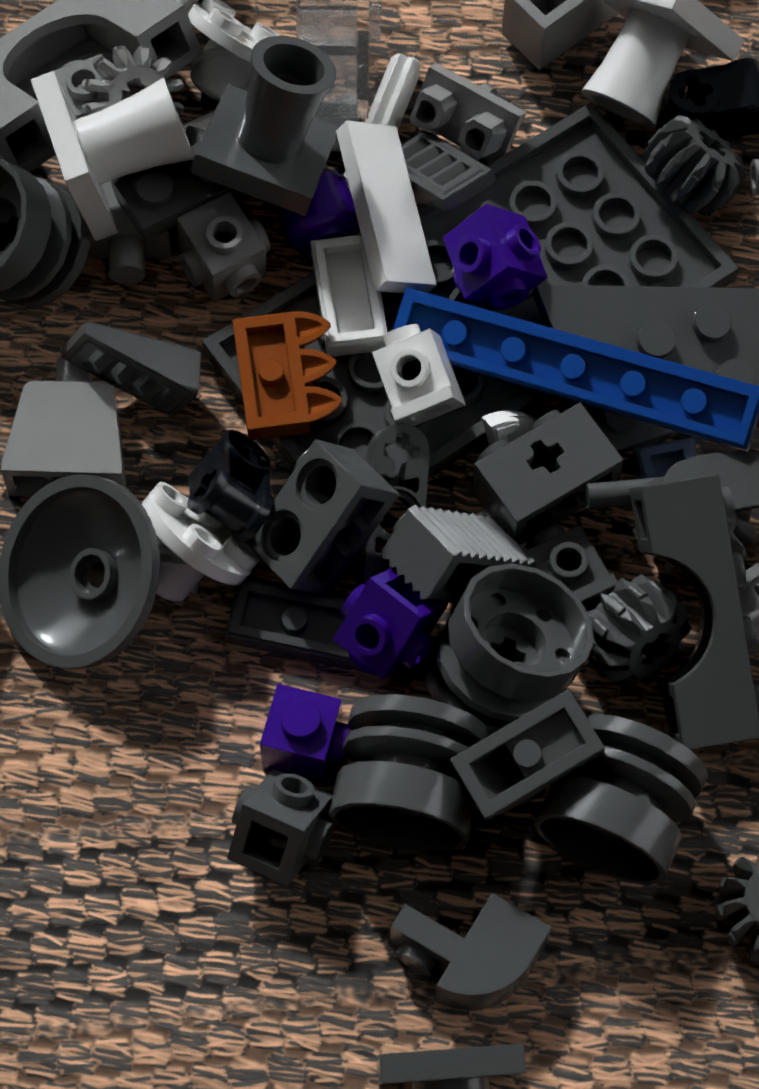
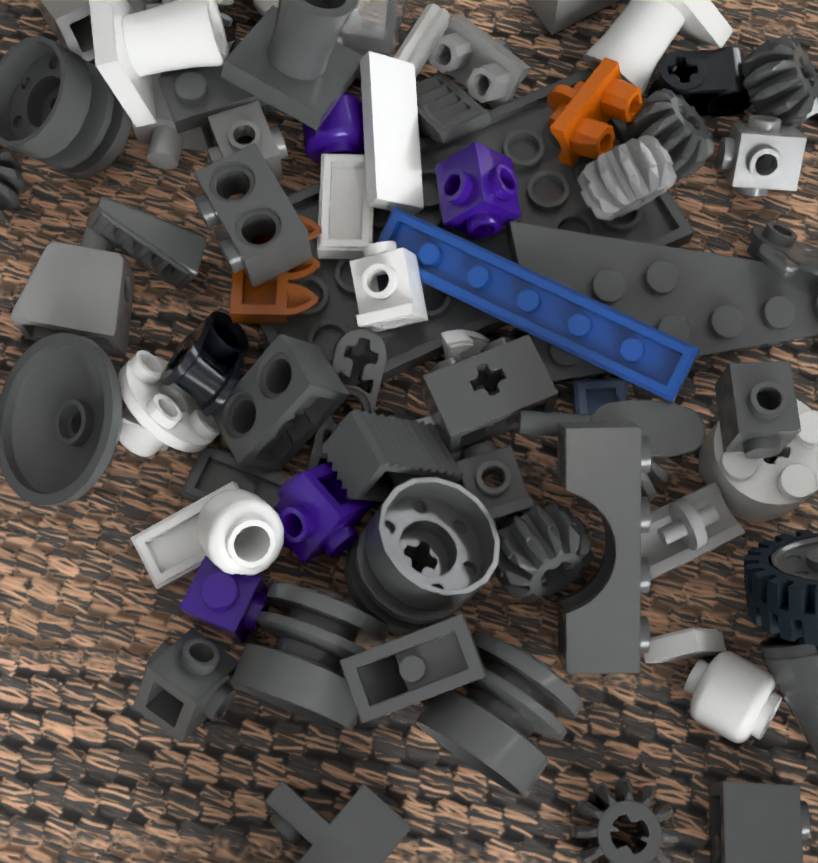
camera: 10 degrees right, 5 degrees up
(247, 676) = (171, 545): none -> white tile
(267, 313) = (258, 213): none -> dark grey brick
(311, 654) = (239, 532): none -> white head
(595, 150) = (584, 110): none -> orange hips
(655, 219) = (626, 177): none -> light grey gear

